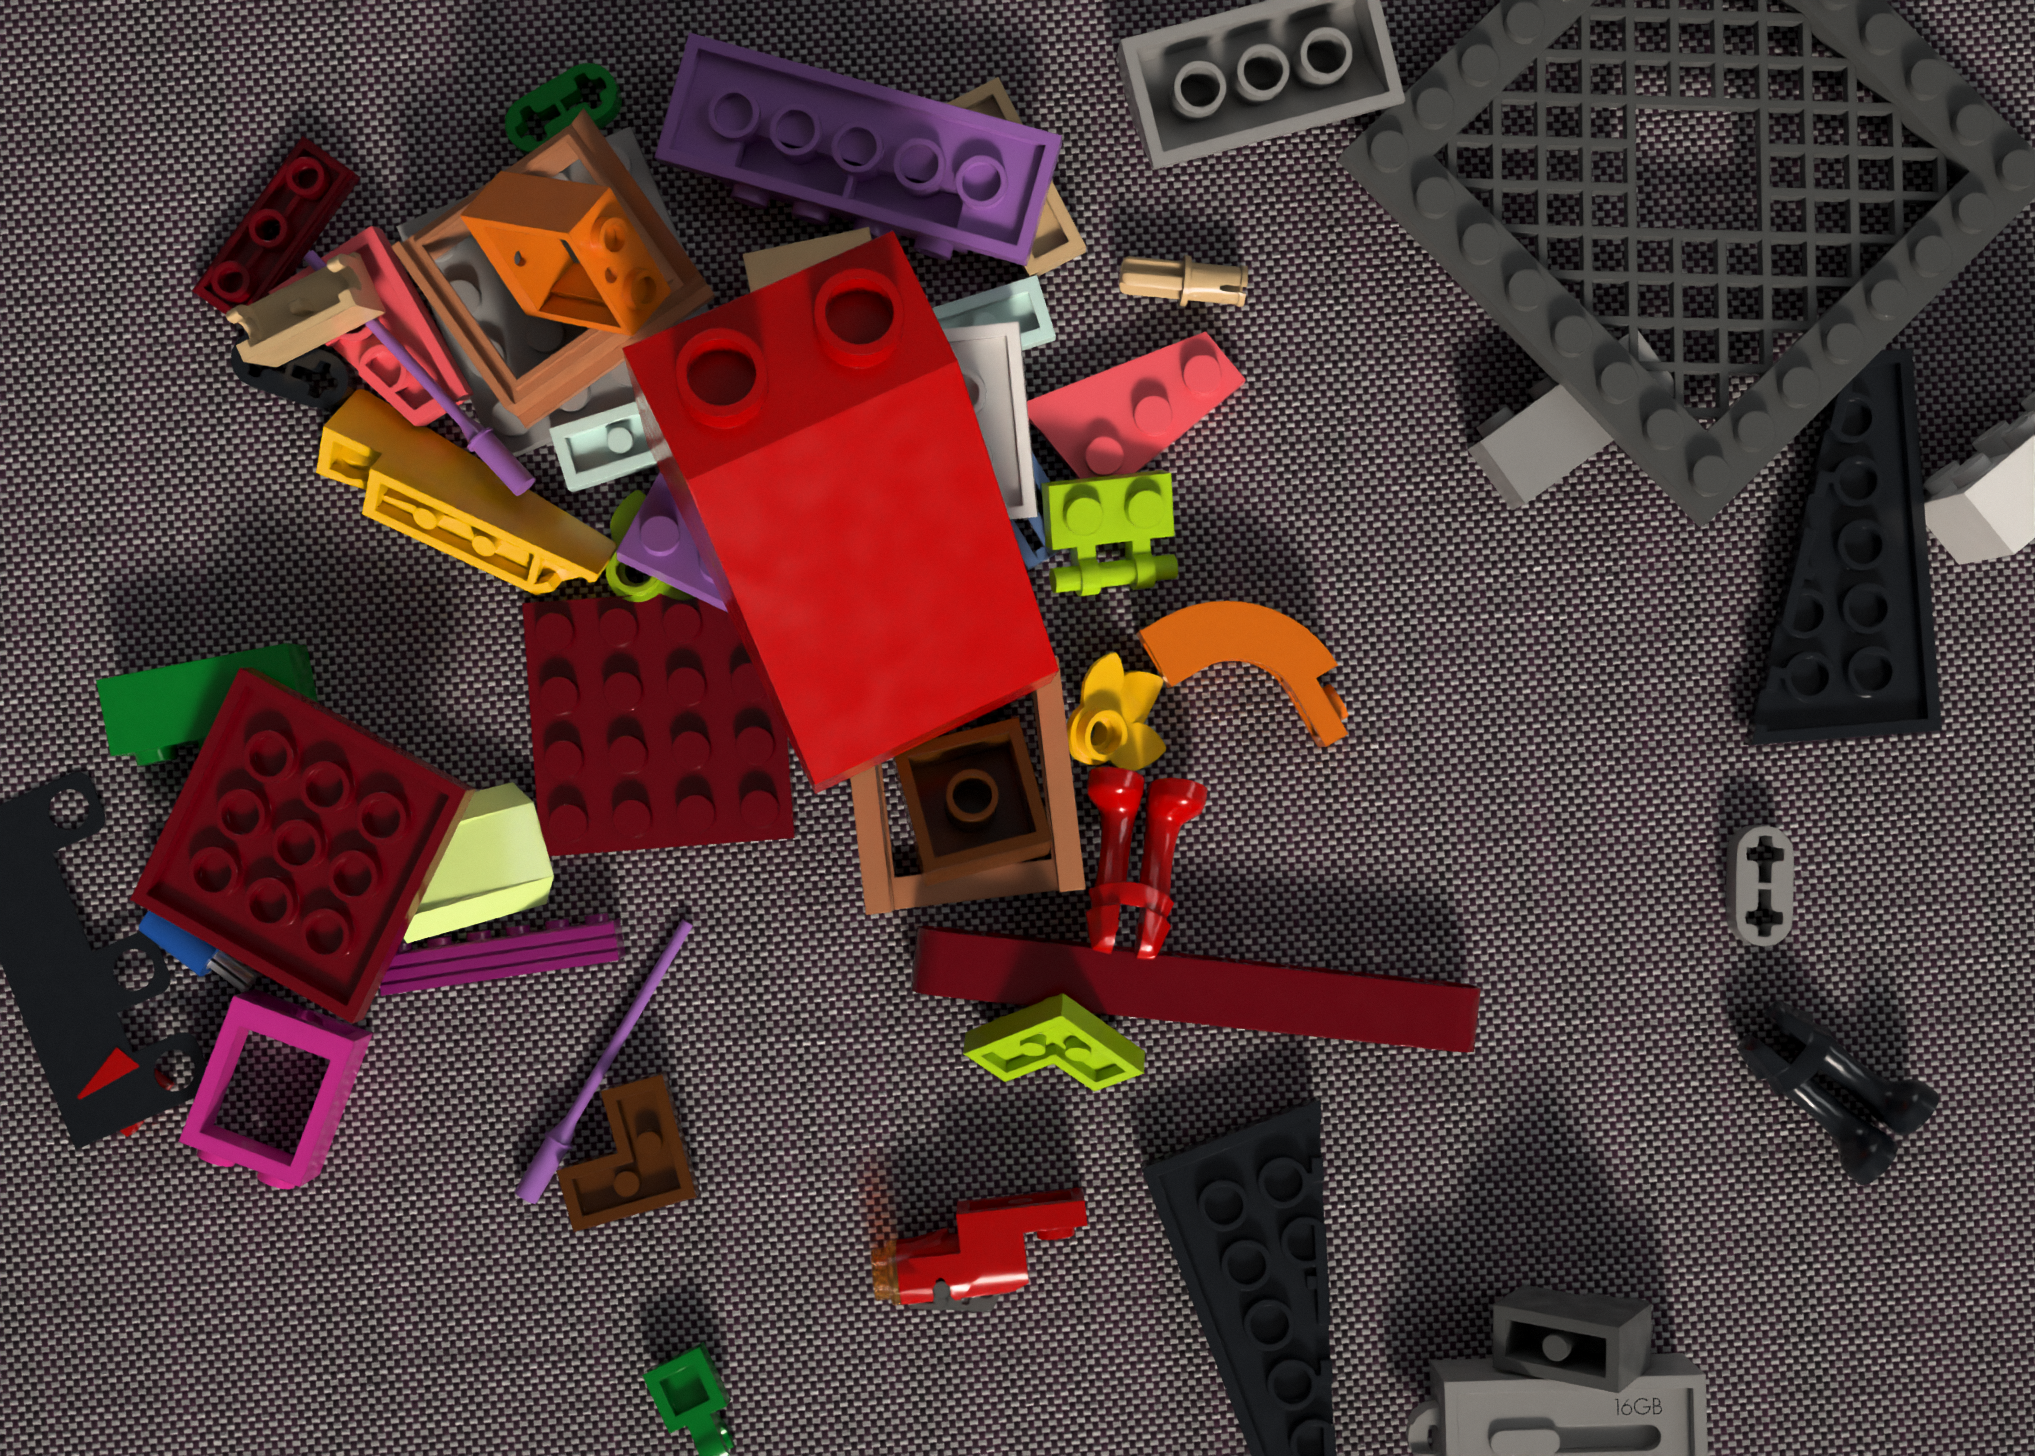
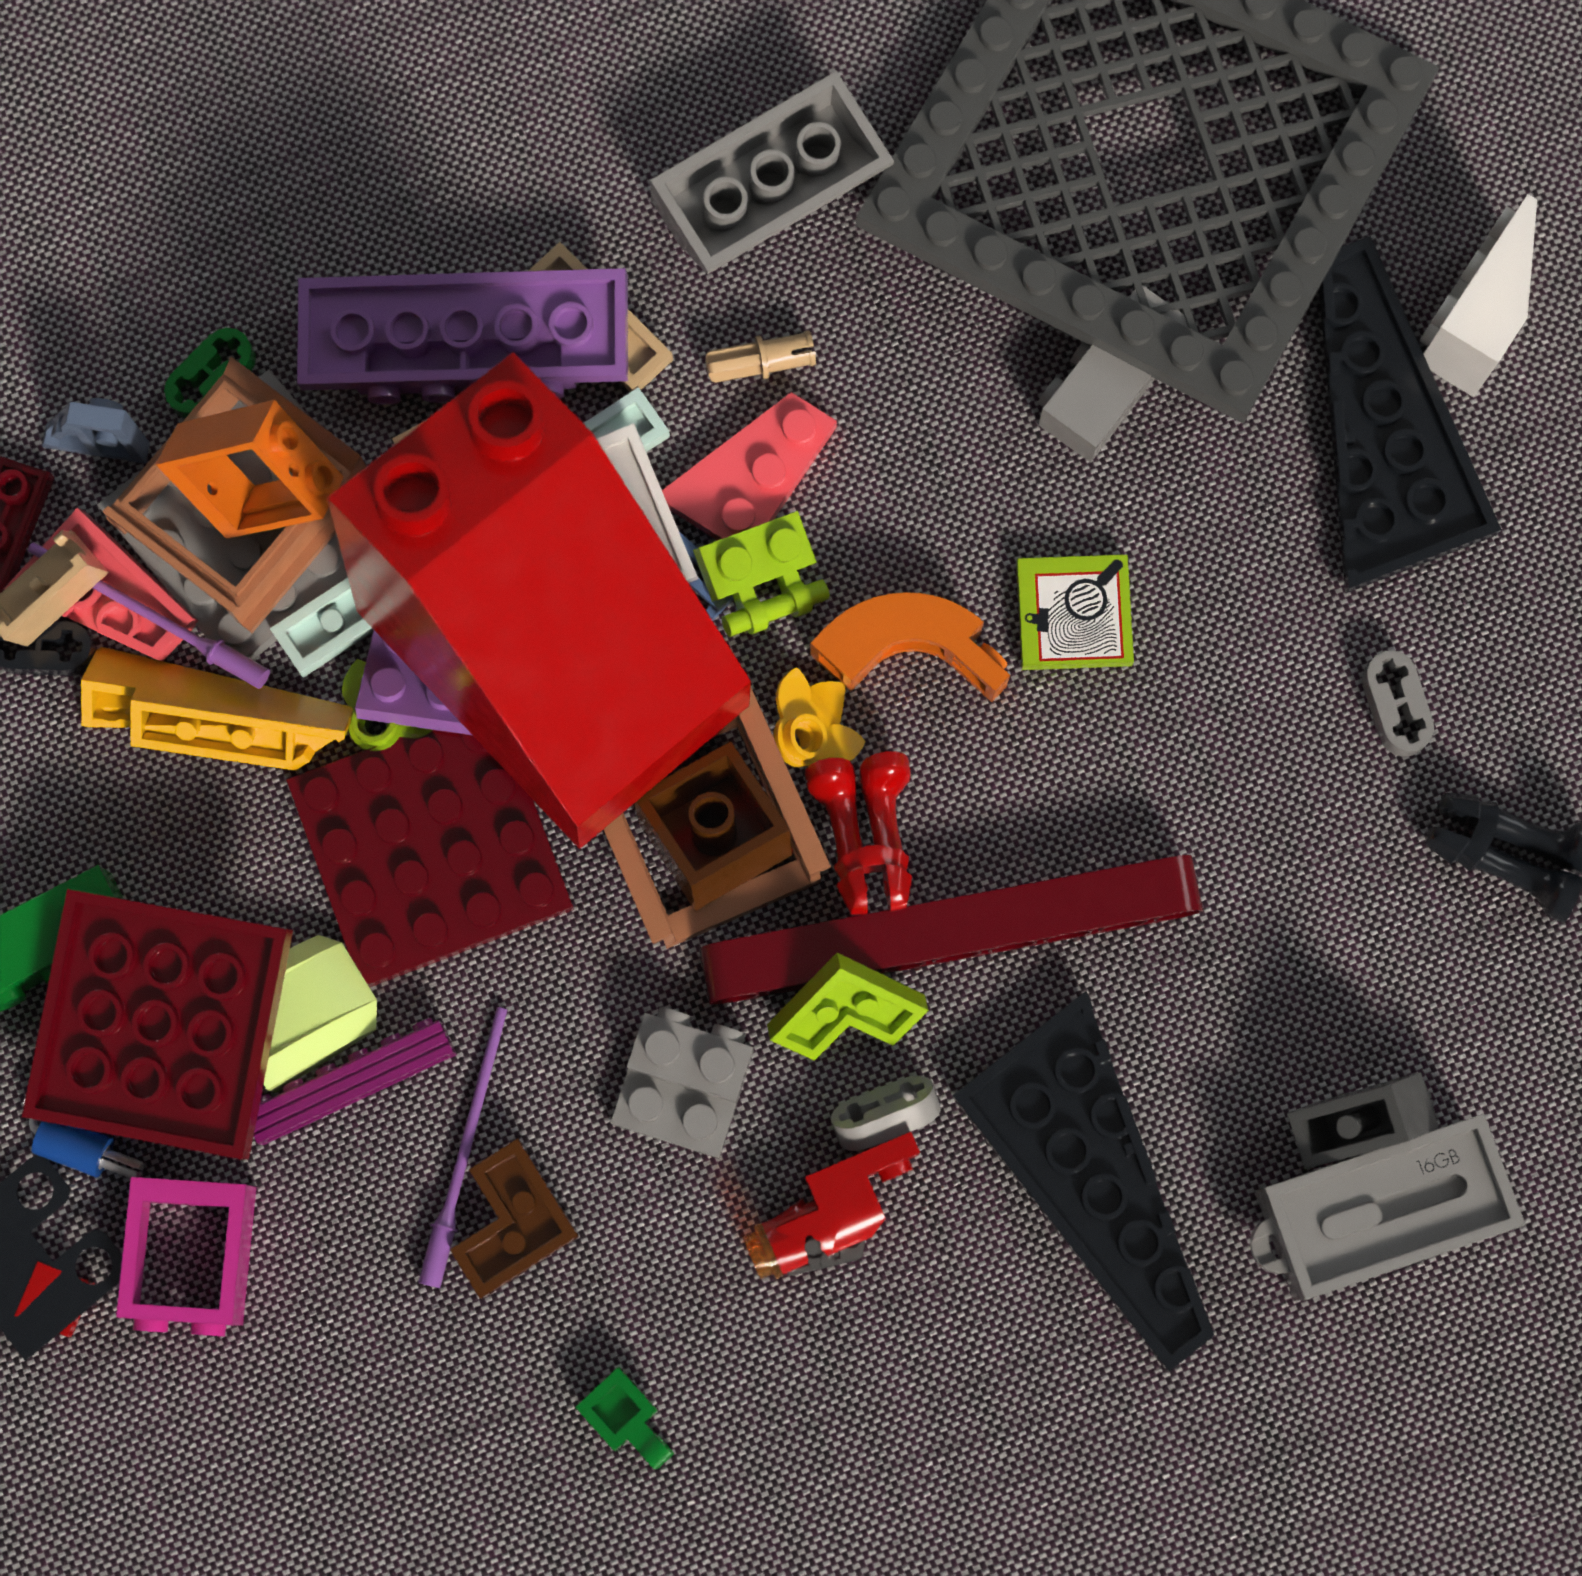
camera: 15 degrees left, 10 degrees down
(418, 142) = (97, 430): none -> sand blue wing
(858, 1064) = (683, 1082): none -> light grey plate
(1063, 1165) = (885, 1113): none -> light grey beam
(1440, 675) = (1074, 612): none -> tile

